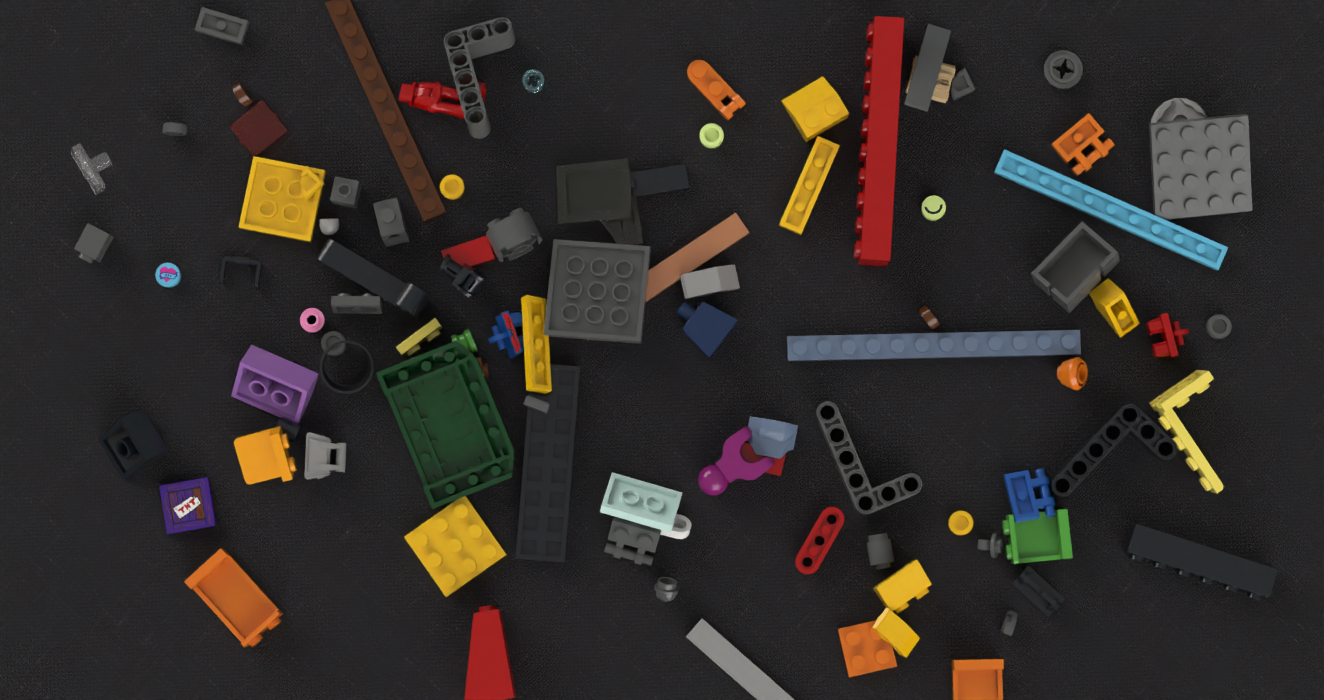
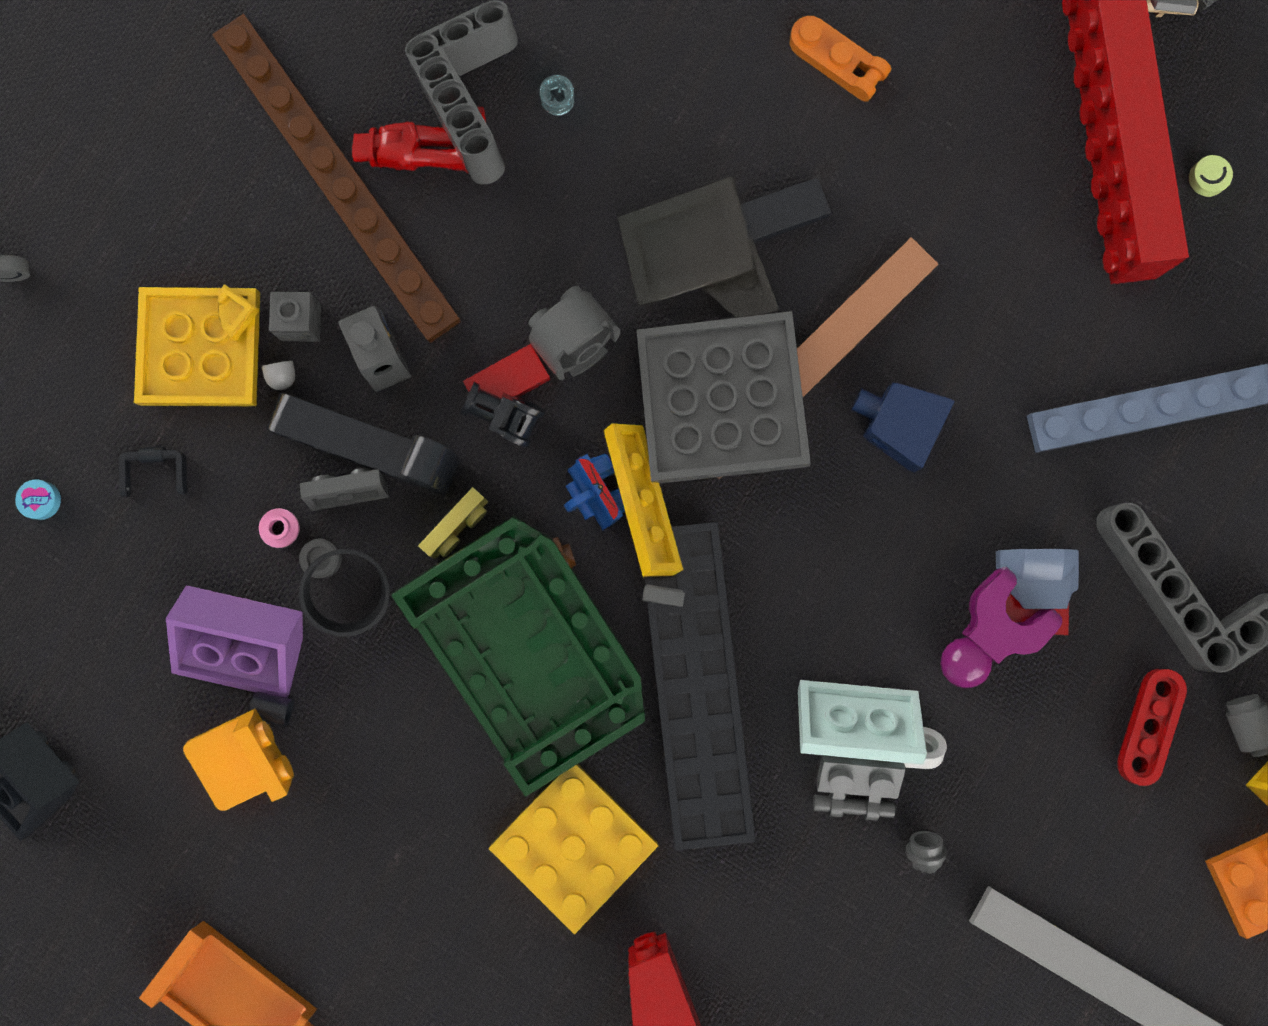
camera: 15 degrees left, 0 degrees up
(187, 505) = (131, 864): tile -> none
(221, 26) = (56, 97): dark grey plate -> none
(242, 94) = (106, 195): reddish brown tile -> none
(258, 128) = (143, 246): clear red piece -> none
(319, 454) = (327, 744): light grey piece -> none
(452, 187) = (462, 280): yellow tile -> none
(466, 340) = (529, 513): bright green wheel -> none
(709, 281) = (893, 350): light grey slope -> none
(711, 135) = (847, 129): yellowish green tile -> none
(809, 185) = (1015, 175): yellow plate -> none
(815, 108) = (1002, 56): yellow slope -> none
(929, 317) = (1245, 342): reddish brown tile -> none

